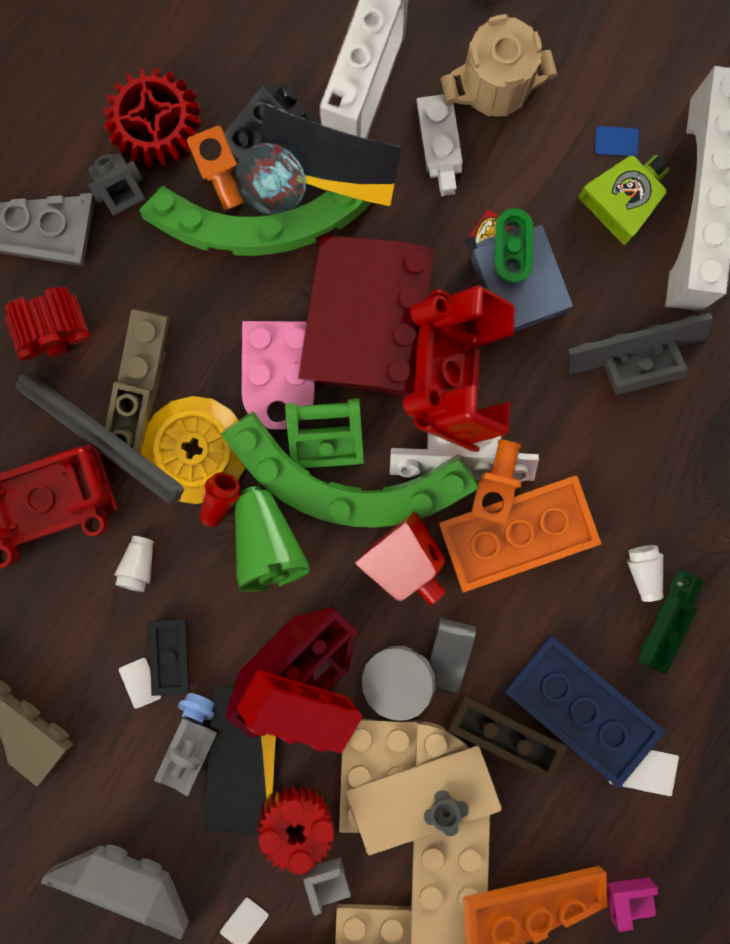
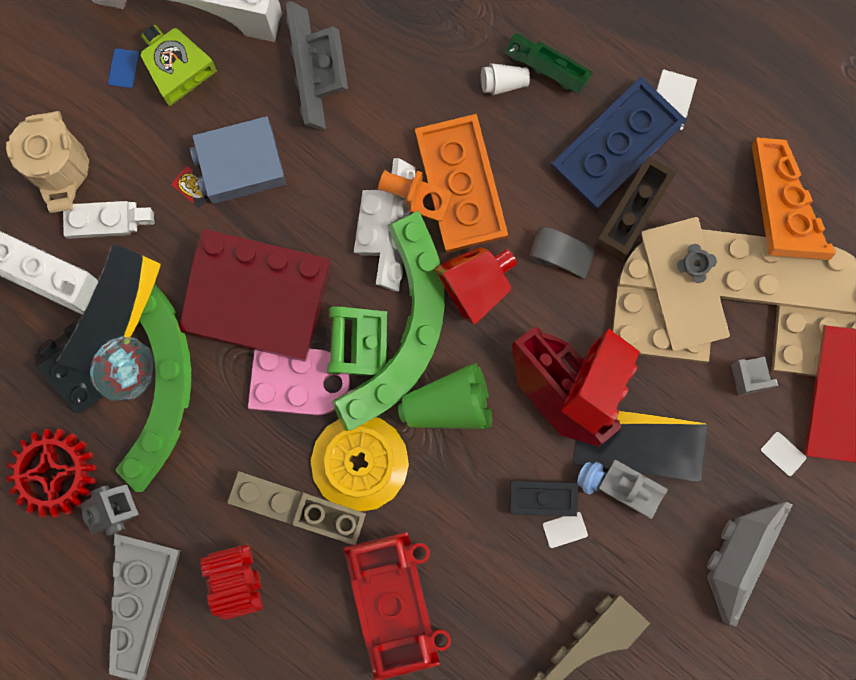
camera: 80 degrees left, 5 degrees down
(100, 438) = (340, 541): dark grey axle -> none
(135, 565) = (459, 522): white cone -> none
(217, 170) = (109, 415): orange bracket -> none
(219, 496) = (404, 439): red cone -> none
(297, 849) = (715, 385): red brick -> none
(398, 683) = (582, 298): light grey tile -> none
(449, 365) = (306, 226): red container -> none
(513, 248) = (211, 159): green plate -> none
(631, 901) = (783, 120): dark pink panel -> none

